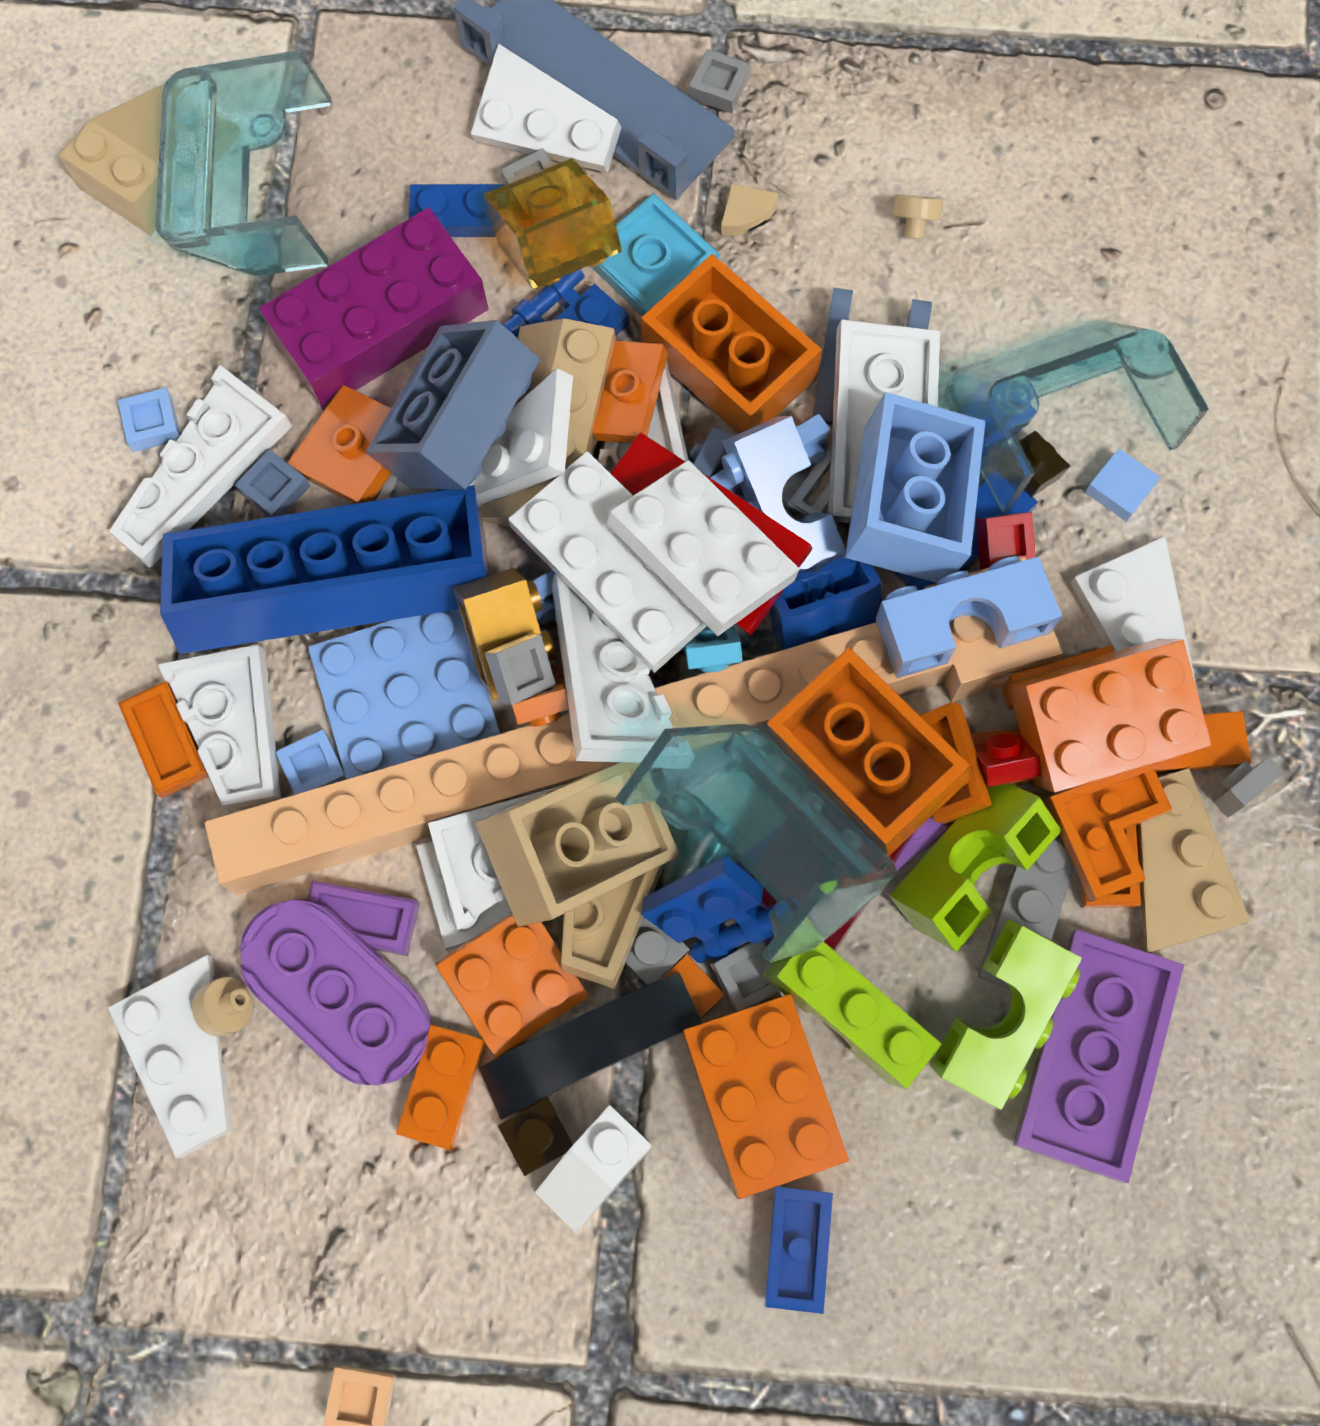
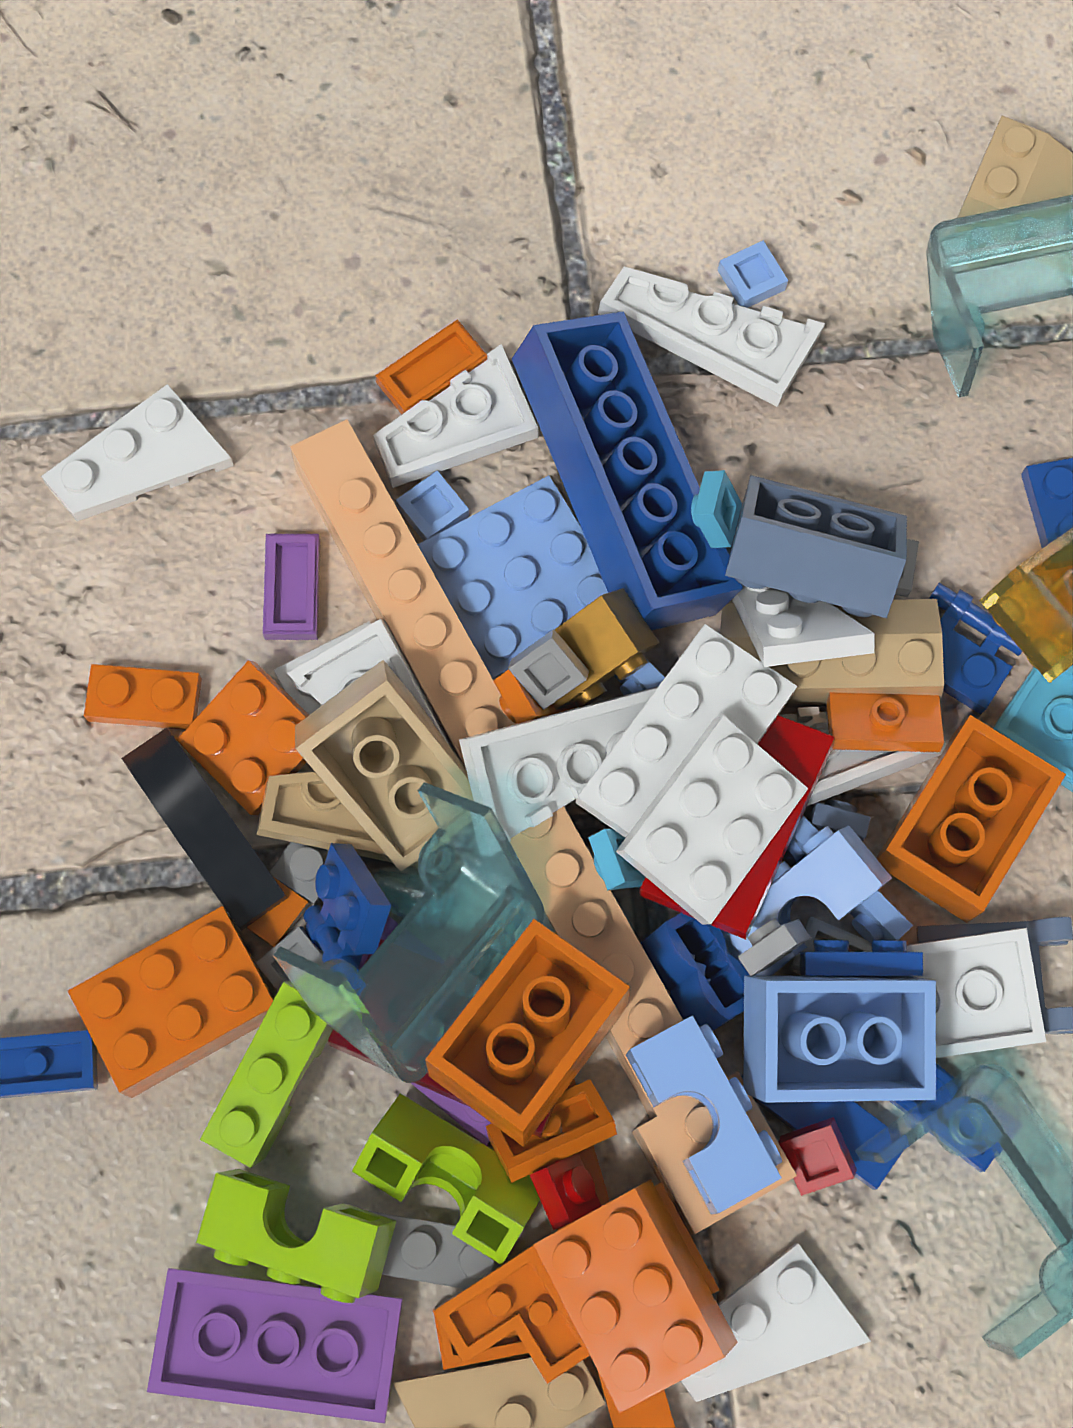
camera: 70 degrees right, 0 degrees up
(222, 1006) = (183, 482): tan tile -> none
(272, 485) = (708, 403): sand blue plate -> none
(335, 992) = (215, 579): medium lavender tile -> none
(336, 448) = (768, 452): orange plate -> none
(375, 307) = (922, 453): magenta brick -> none
(394, 487) = (716, 509): none -> medium azure plate
(536, 1136) = (109, 795): dark brown plate -> none
(593, 1168) = (89, 855): white slope -> none
(823, 525) = (772, 944): none -> light grey plate
(843, 479) = (886, 959): none -> blue plate
(1045, 462) = (922, 1178): dark brown plate -> none
(1122, 484) = (924, 1285): light blue tile -> none

